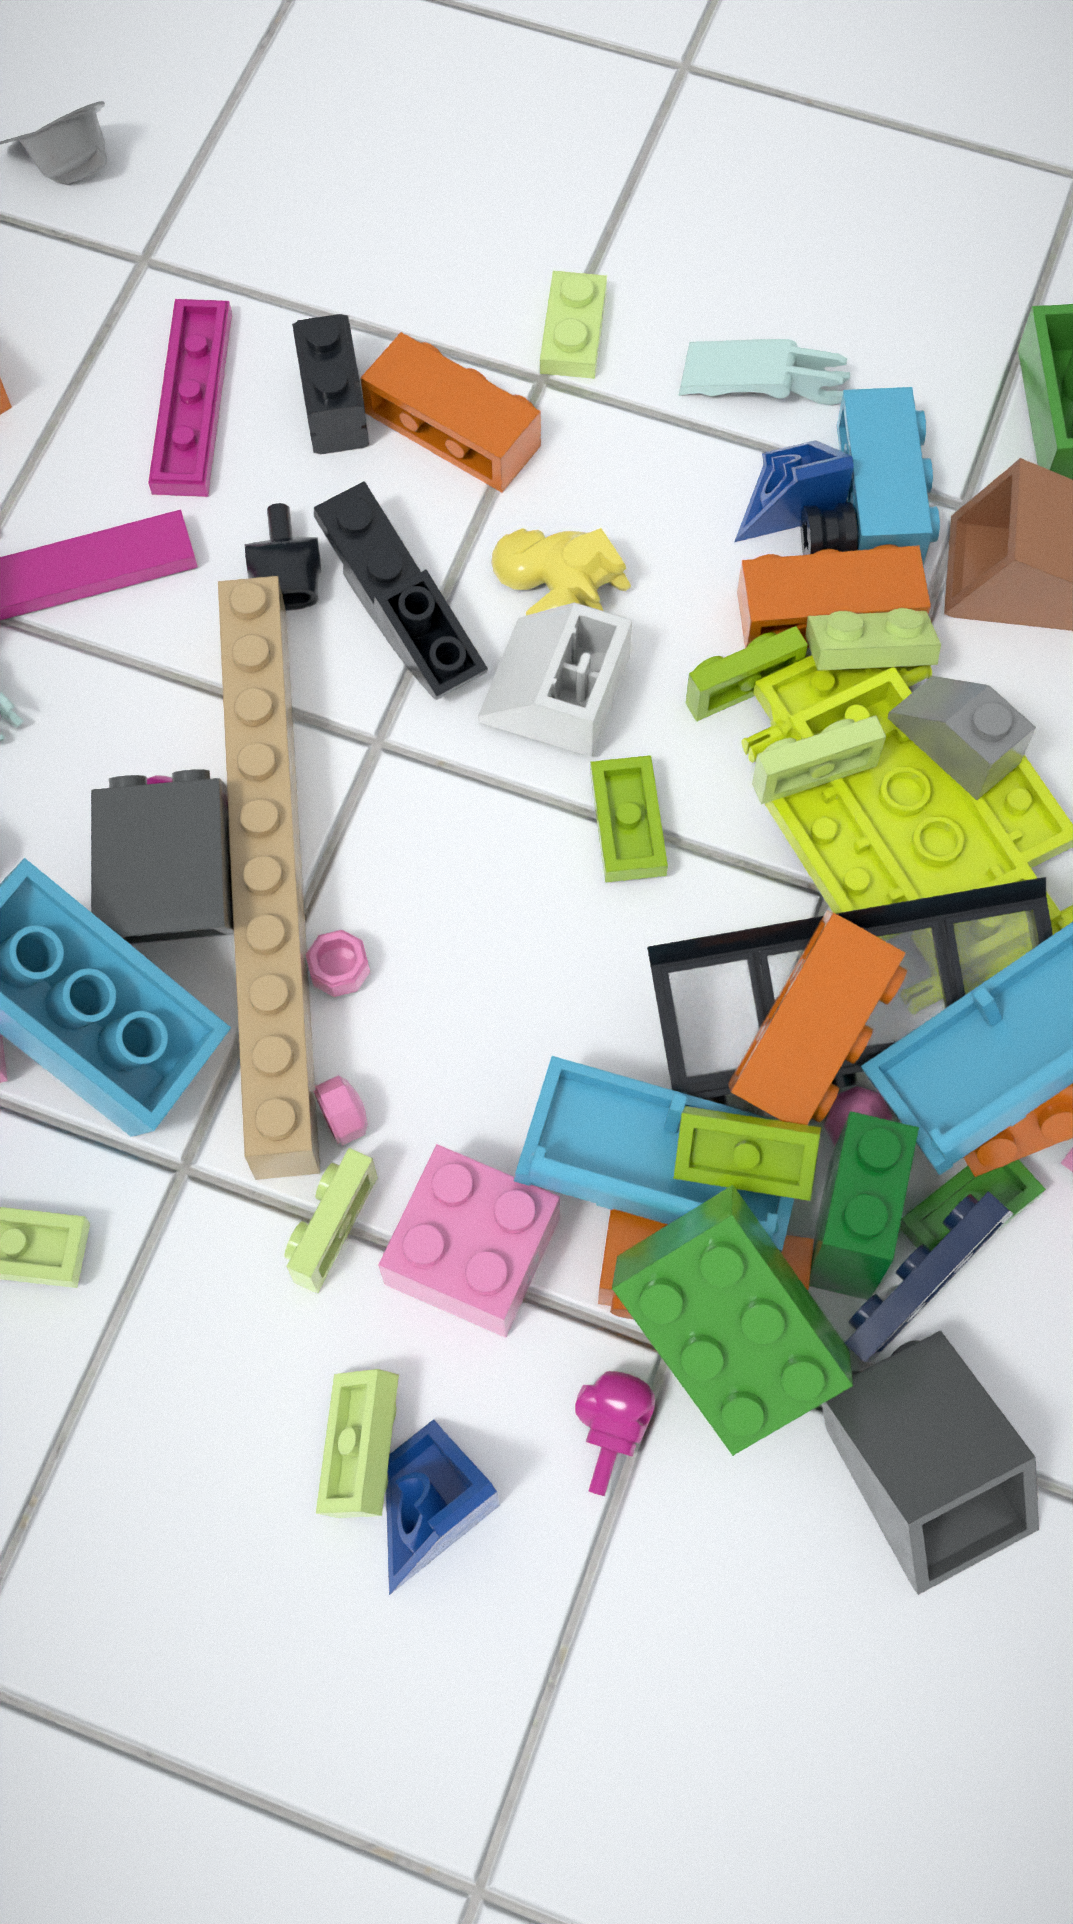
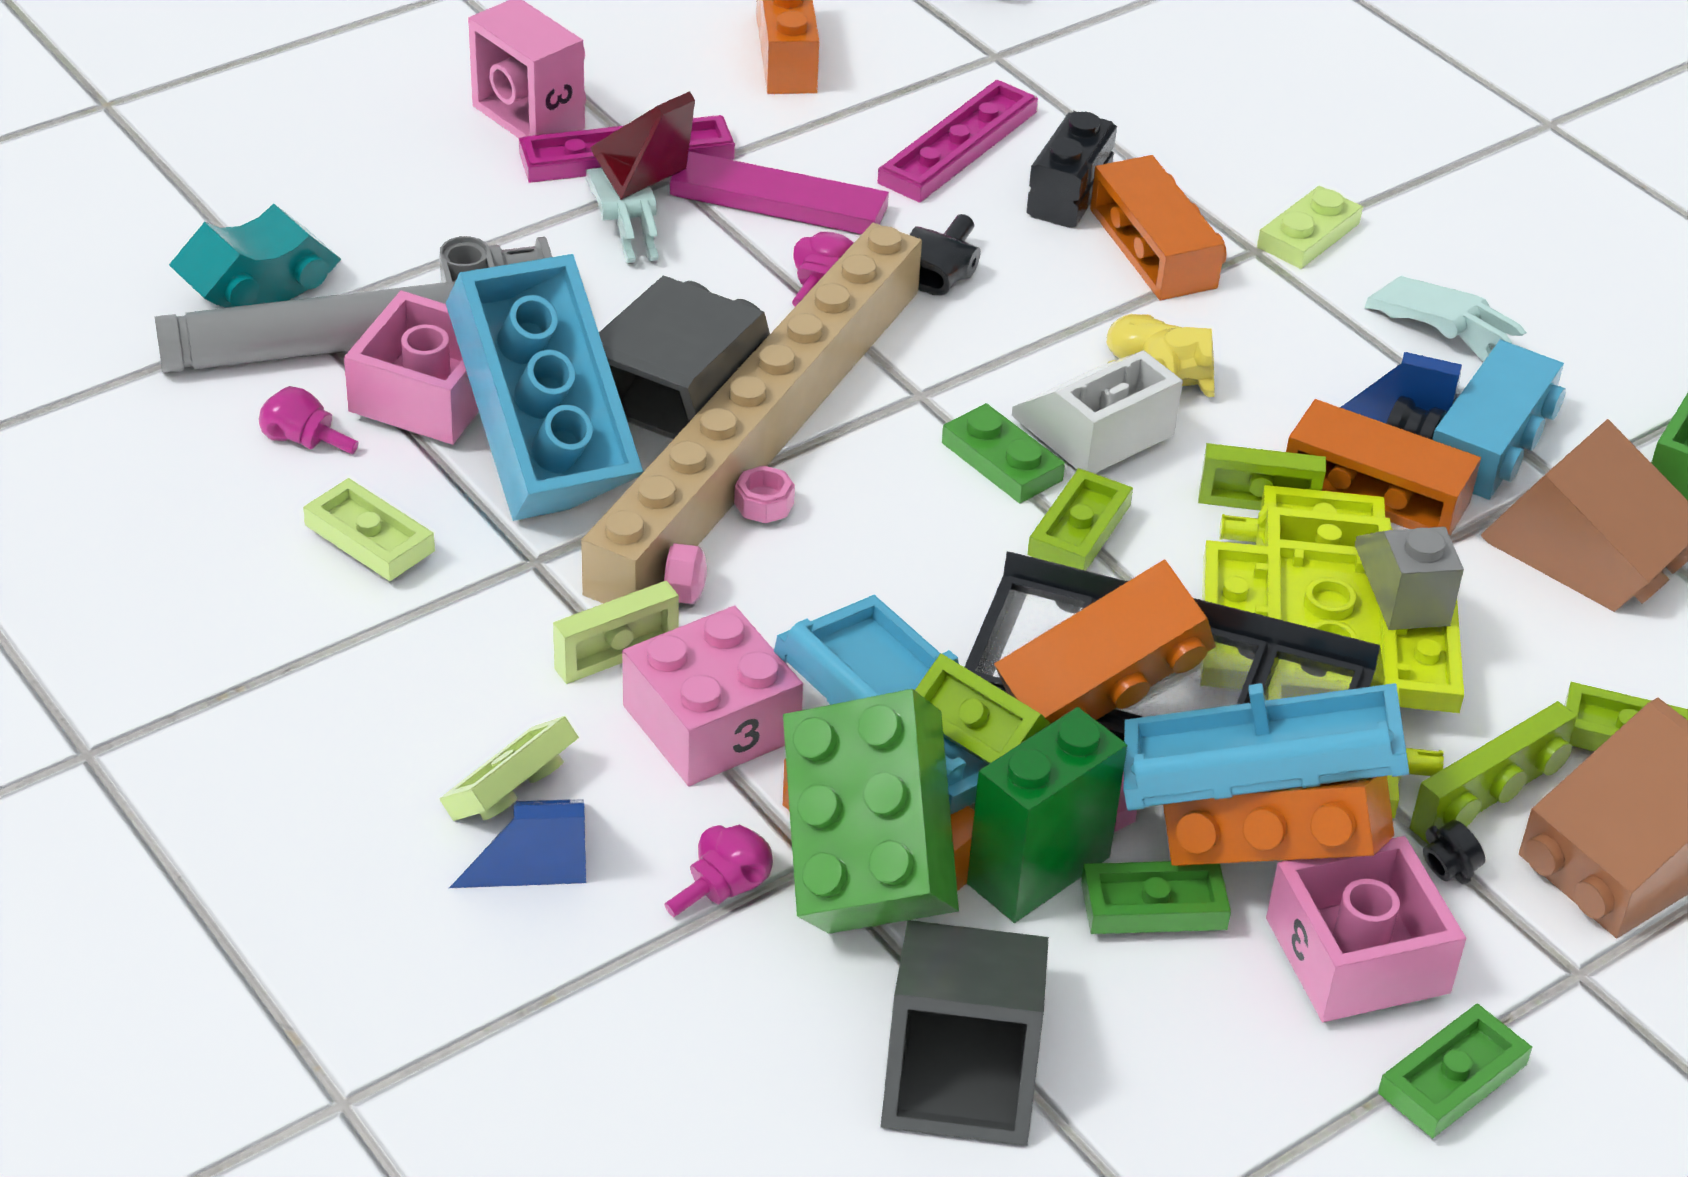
camera: 30 degrees right, 25 degrees down
(188, 640) = (815, 257): none -> dark pink piece
(397, 594) = (1014, 302): black slope -> none
(501, 772) = (1003, 453): none -> bright green plate
(819, 759) = (1262, 526): yellowish green plate -> none
(872, 639) = (1406, 501): yellowish green plate -> none
(925, 1275) = (1076, 890): dark blue plate -> none

